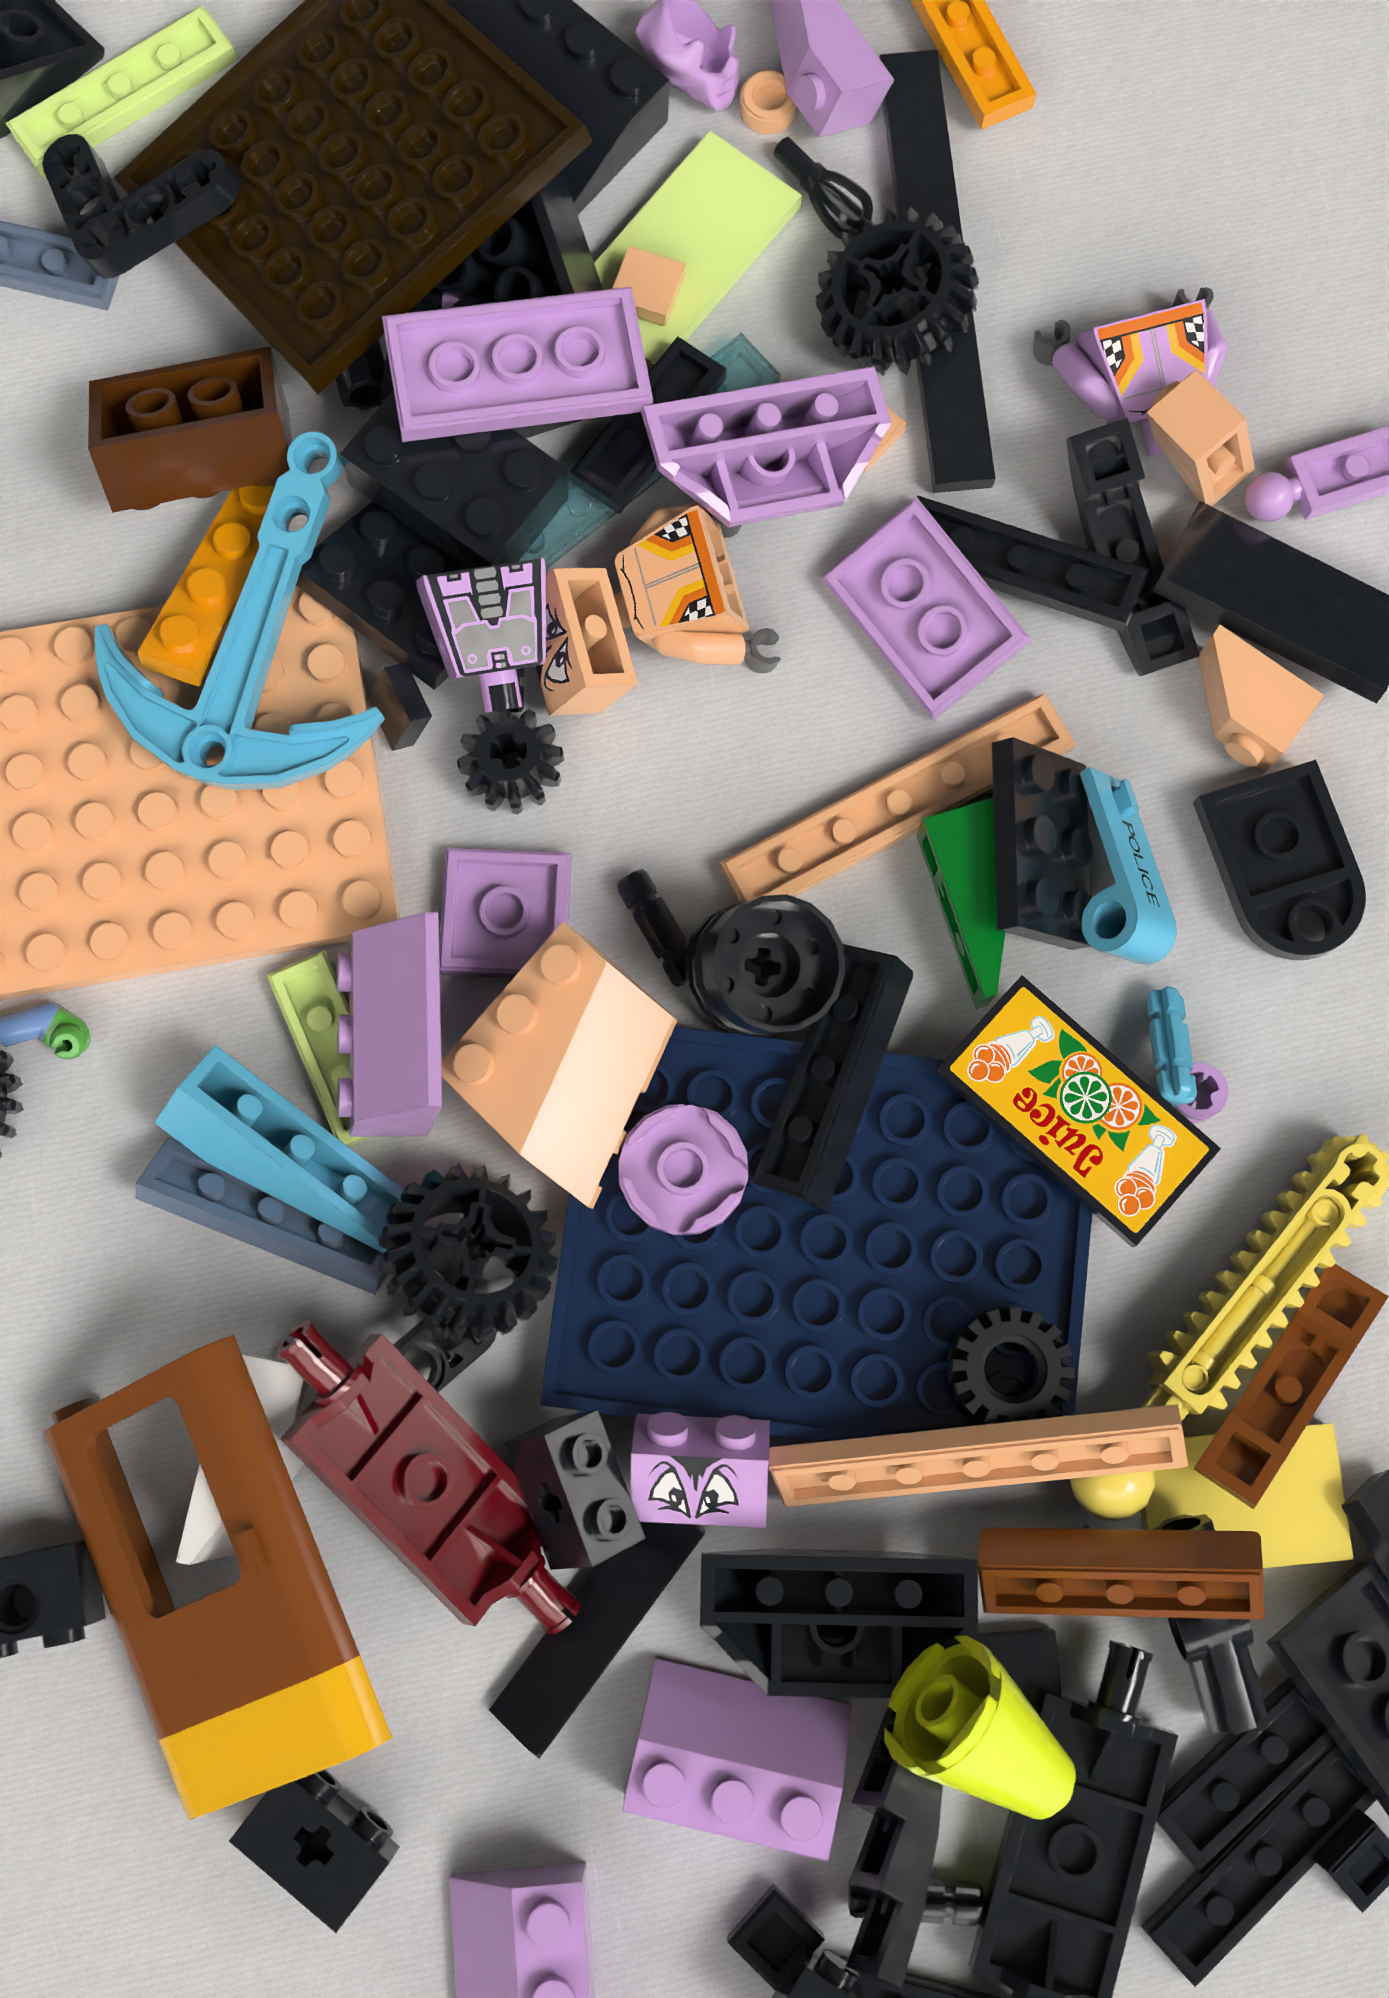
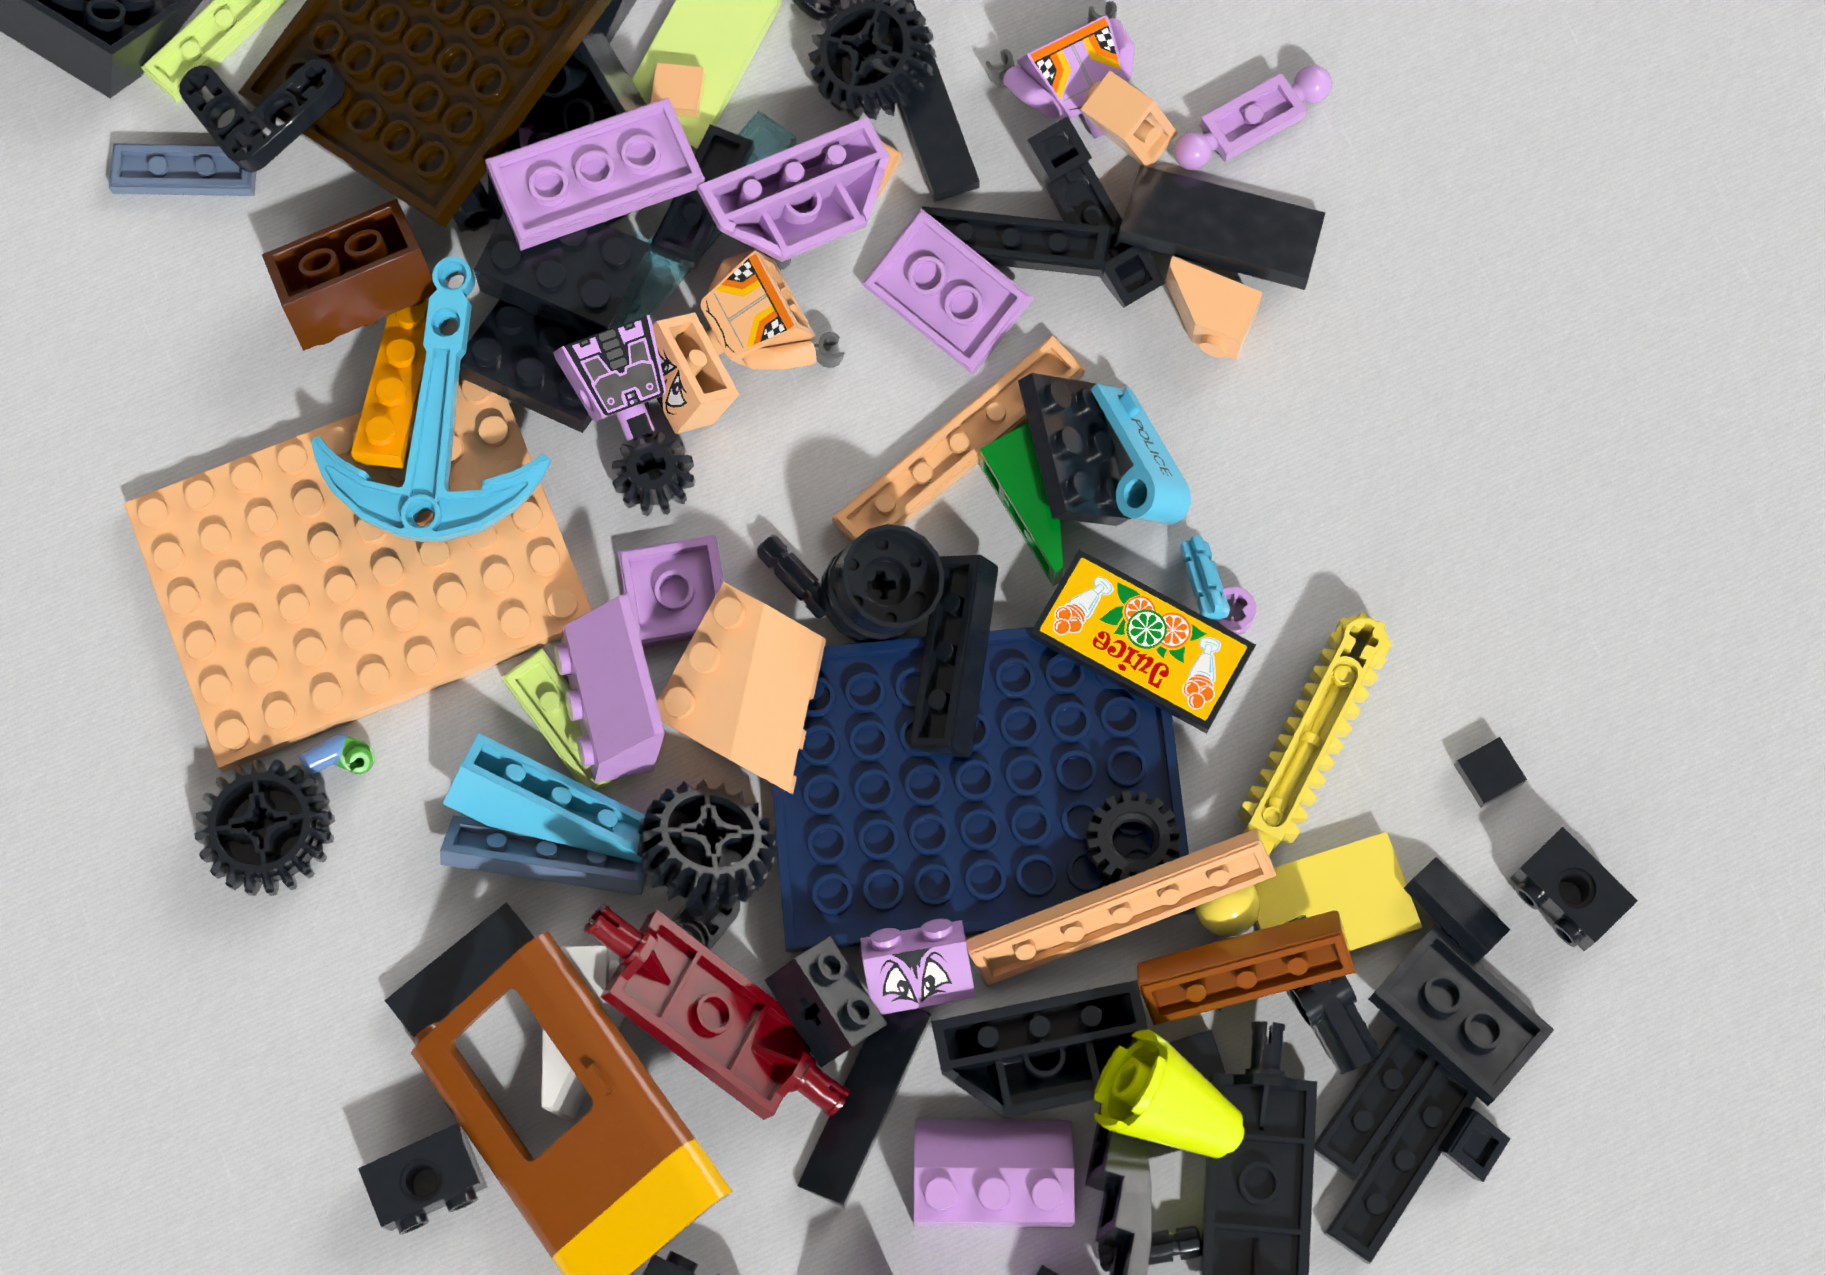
camera: 10 degrees left, 5 degrees down
(135, 1337) = (459, 970): none -> black tile
(401, 705) = (561, 448): black tile -> none
(683, 1169) = (855, 750): lavender tile -> none
(1283, 855) = (1260, 419): black plate -> none
(1290, 1385) = (1349, 807): dark orange slope -> none

